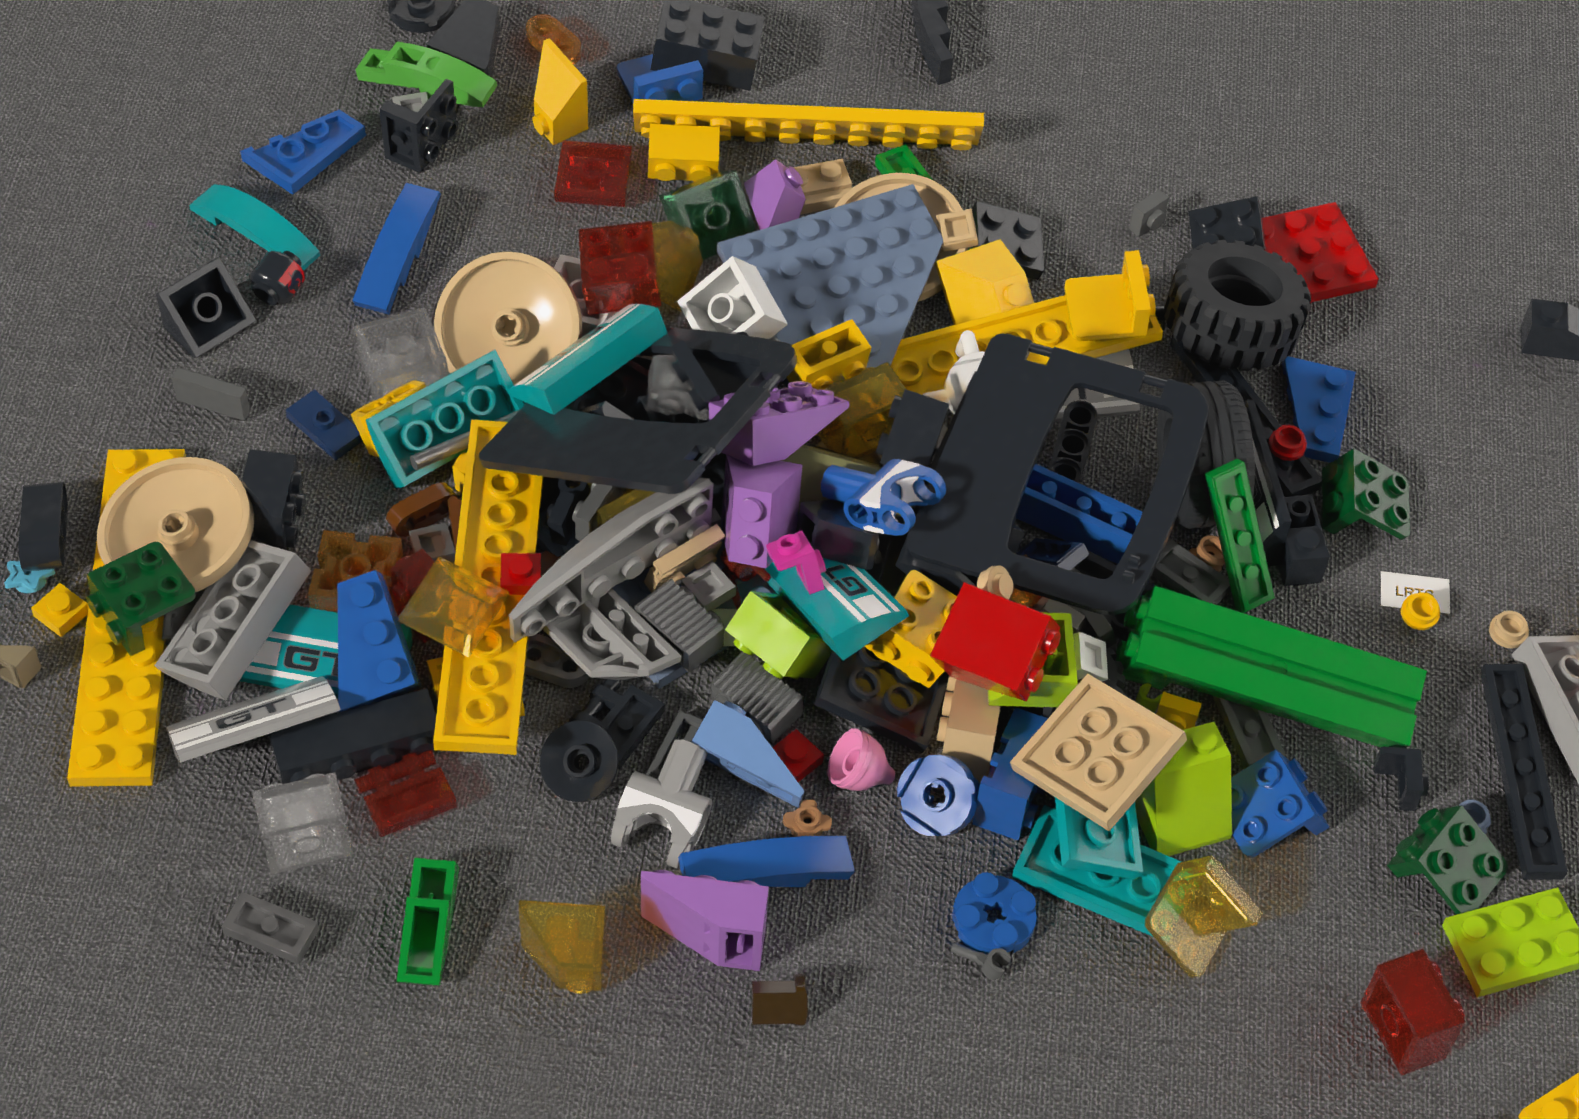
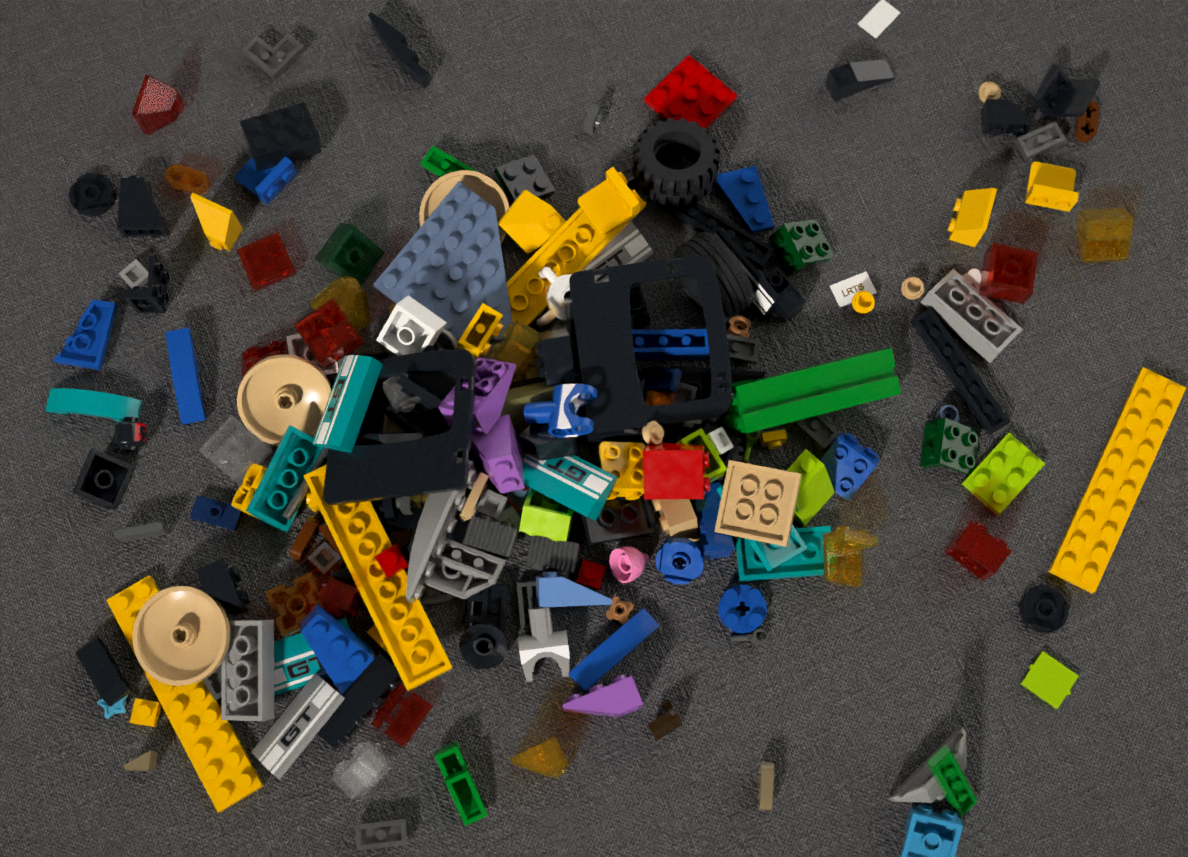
camera: 25 degrees left, 20 degrees up
(136, 592) = (188, 688): dark green bracket -> none
(426, 69) = (129, 245): bright green slope -> none
(453, 606) = (369, 604): clear yellow slope -> none
(682, 152) = (311, 222): yellow brick -> none
(775, 194) = (383, 227): medium lavender slope -> none
(797, 551) = (537, 476): dark pink bracket -> none
(816, 122) = (380, 160): yellow plate -> none
(823, 184) = (396, 200): tan plate -> none
(957, 230) = (498, 196): tan tile -> none
(1228, 221) = (641, 108): black plate -> none
(1239, 535) = (756, 318): green tile -> none
(1287, 443) = (746, 237): red plate -> none
(1407, 766) = (909, 410): black bracket -> none

